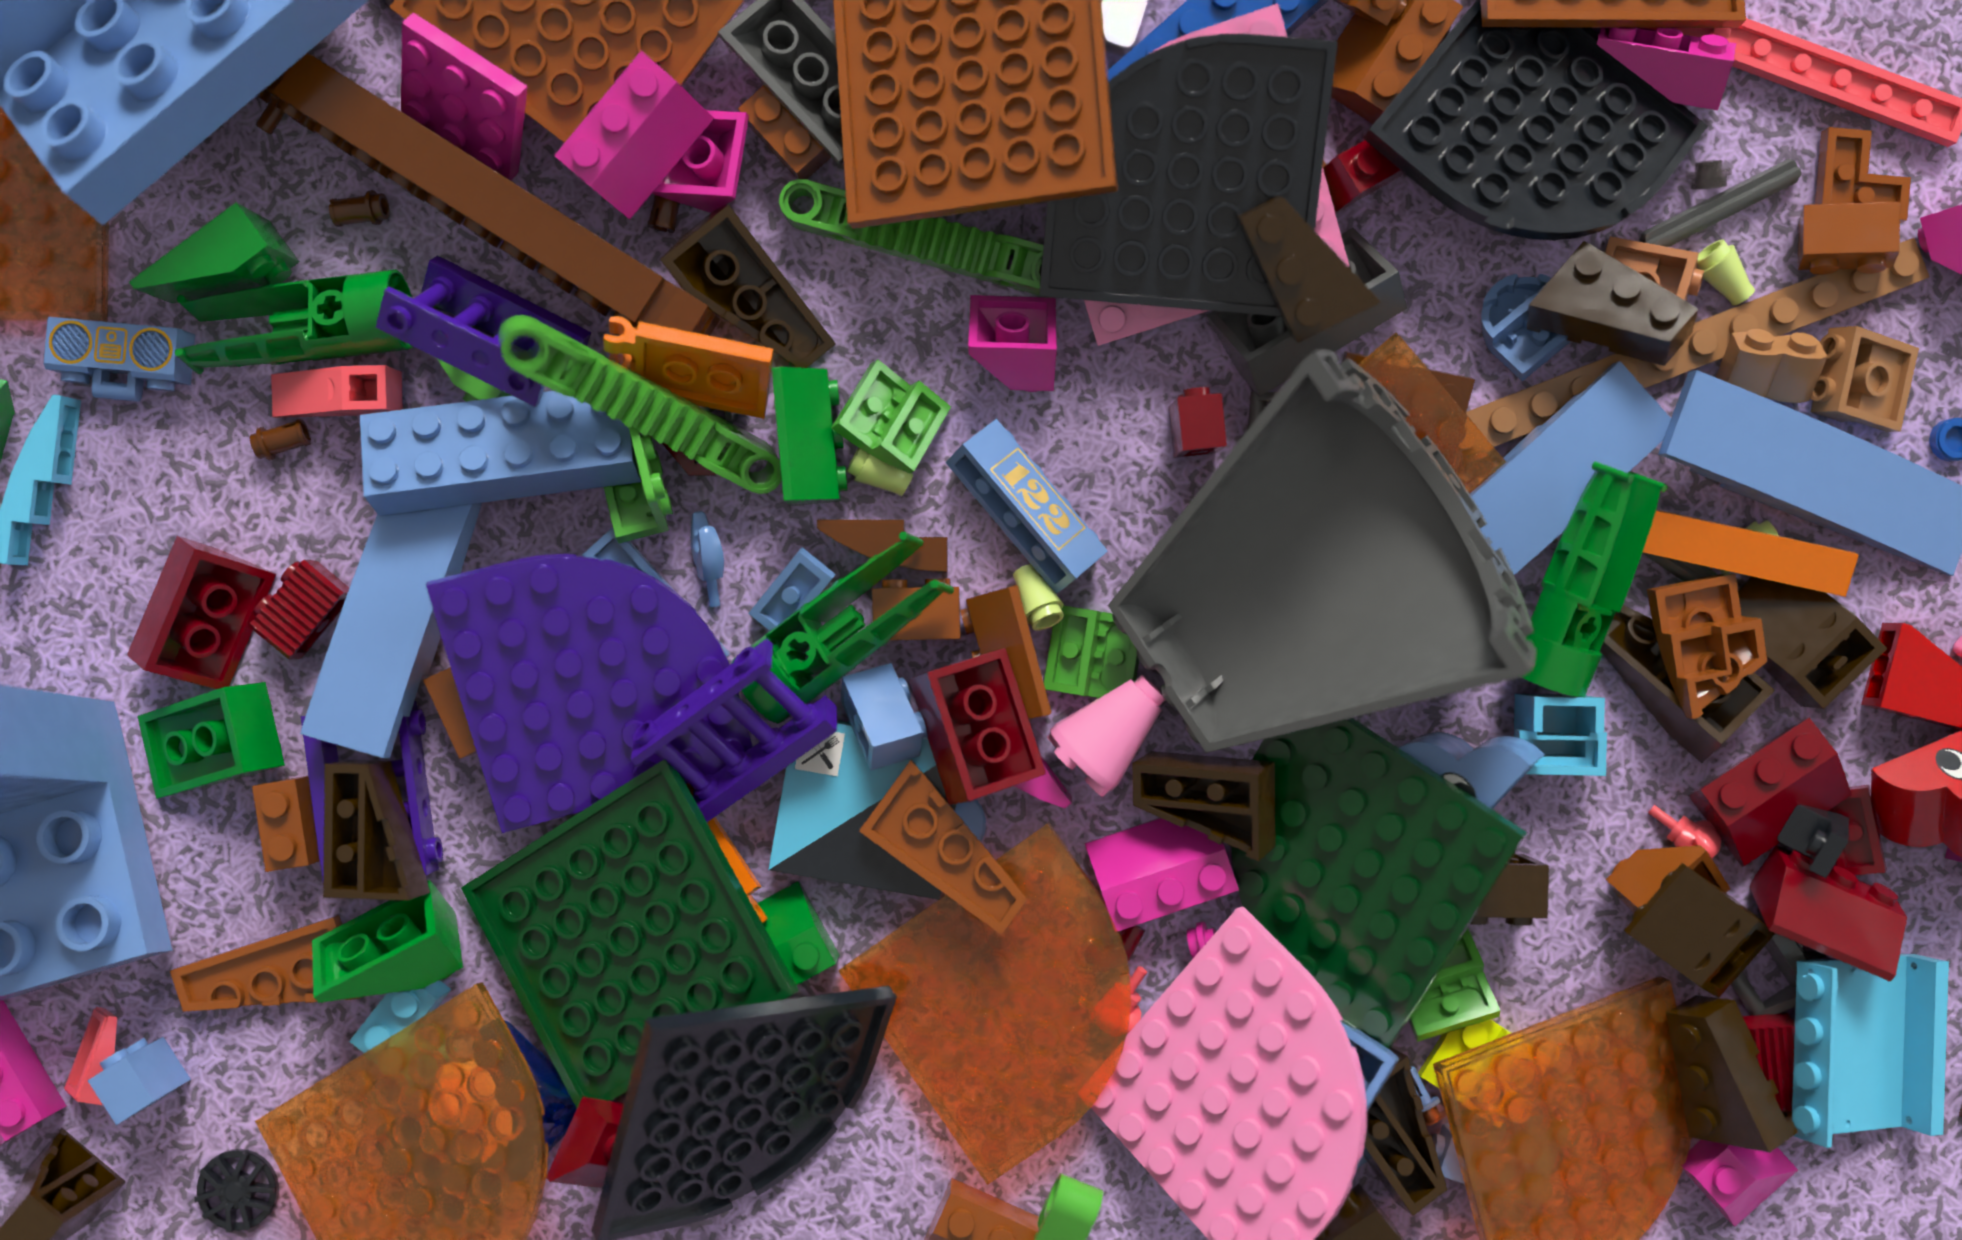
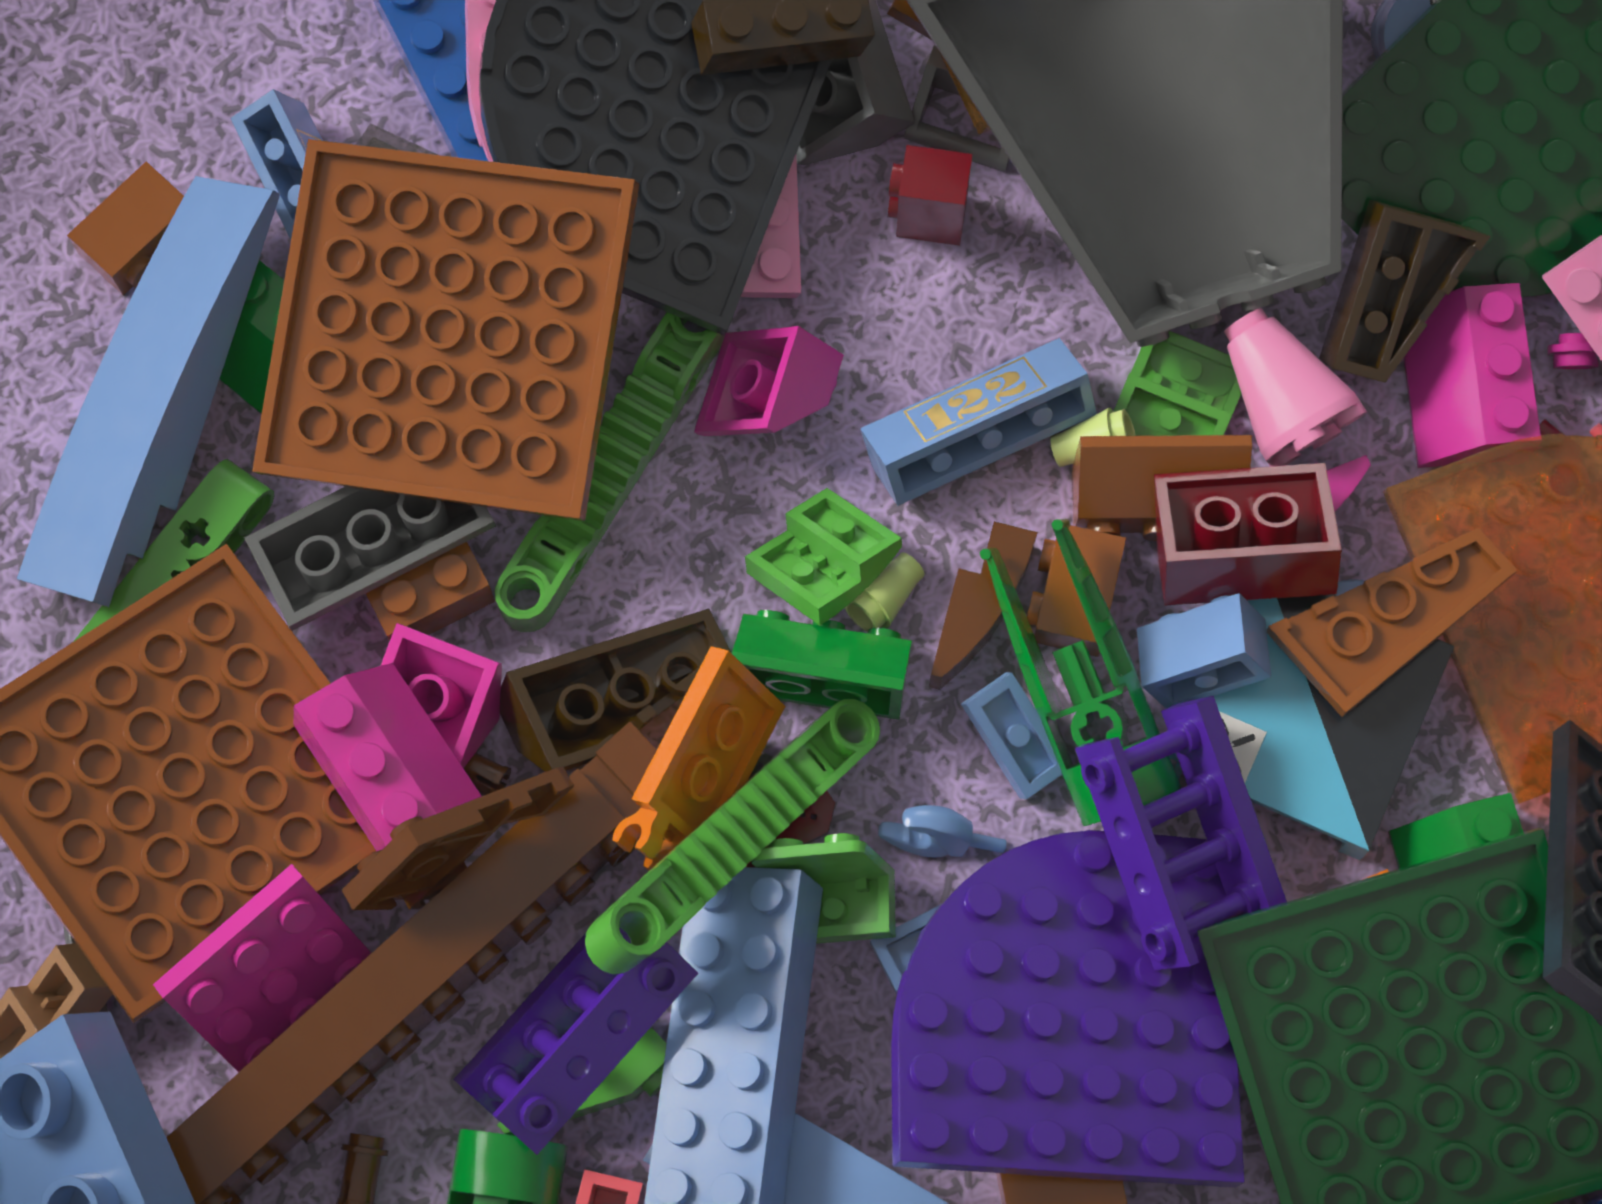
camera: 75 degrees left, 15 degrees down
(572, 196) = (433, 849): none -> reddish brown wing

